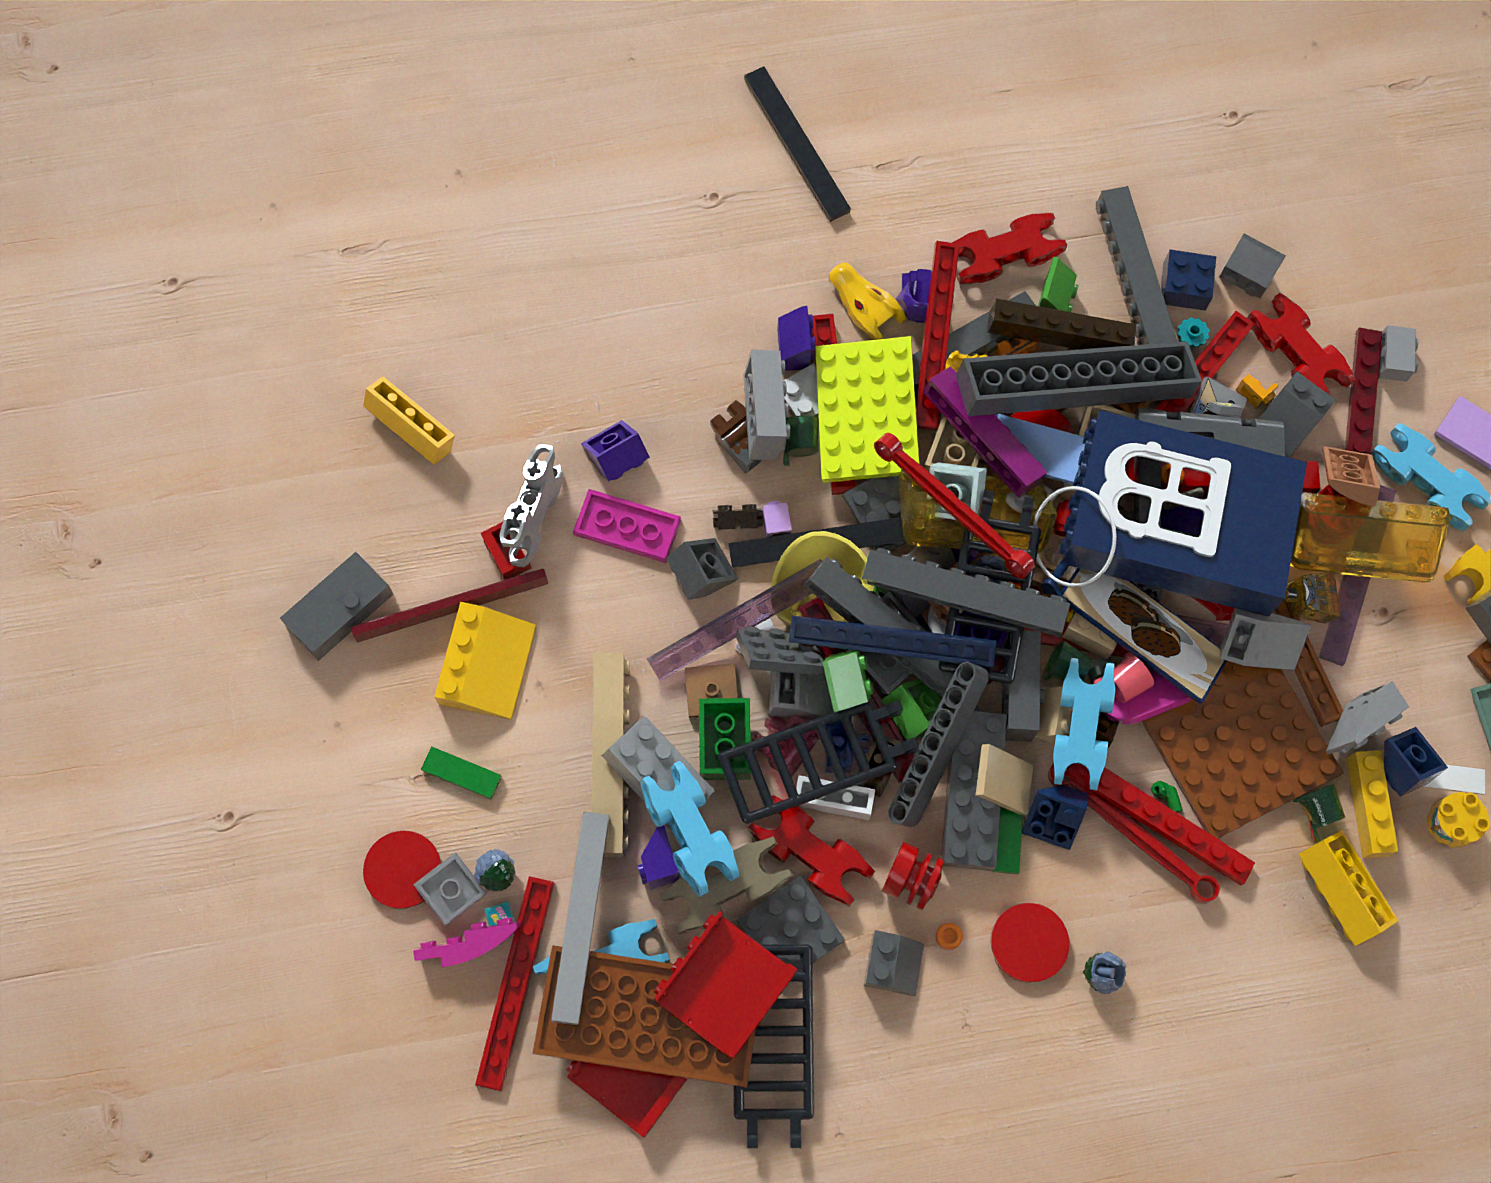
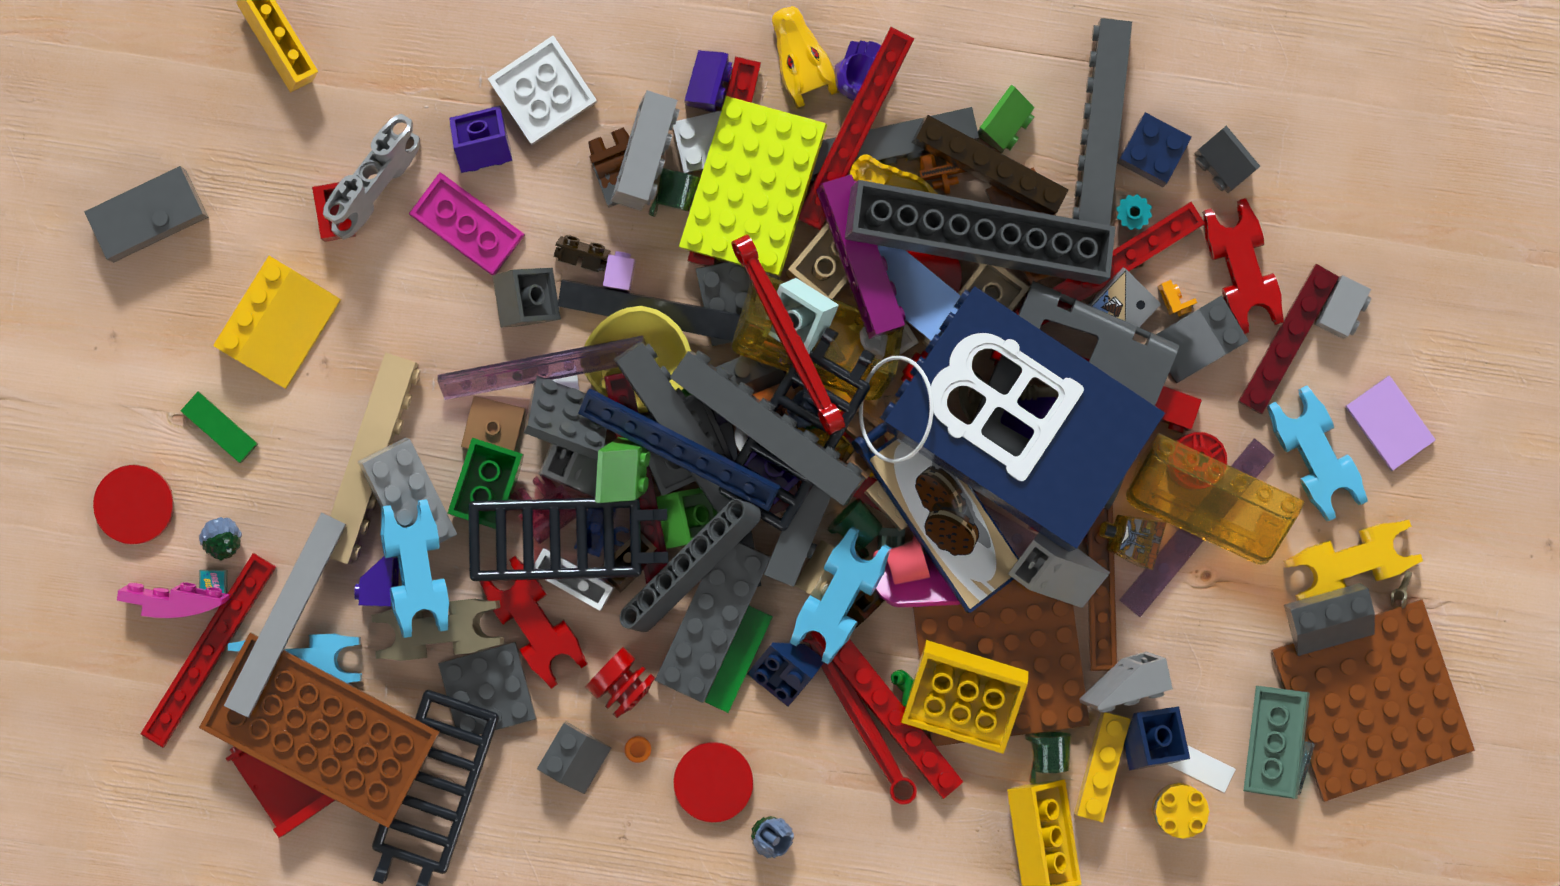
camera: 20 degrees right, 15 degrees up
(449, 605) = (259, 251): dark red tile -> none
(450, 889) = (172, 540): light grey tile -> none
(654, 394) = (542, 90): none -> white plate
(724, 985) = (398, 727): red panel -> none
(1004, 779) = (742, 622): tan tile -> none
(1020, 243) = (959, 47): red piece -> none
(1225, 409) = (1128, 311): light grey tile -> none
(1228, 781) = (965, 696): none -> yellow slope
(1352, 474) = (1221, 429): nougat slope -> none

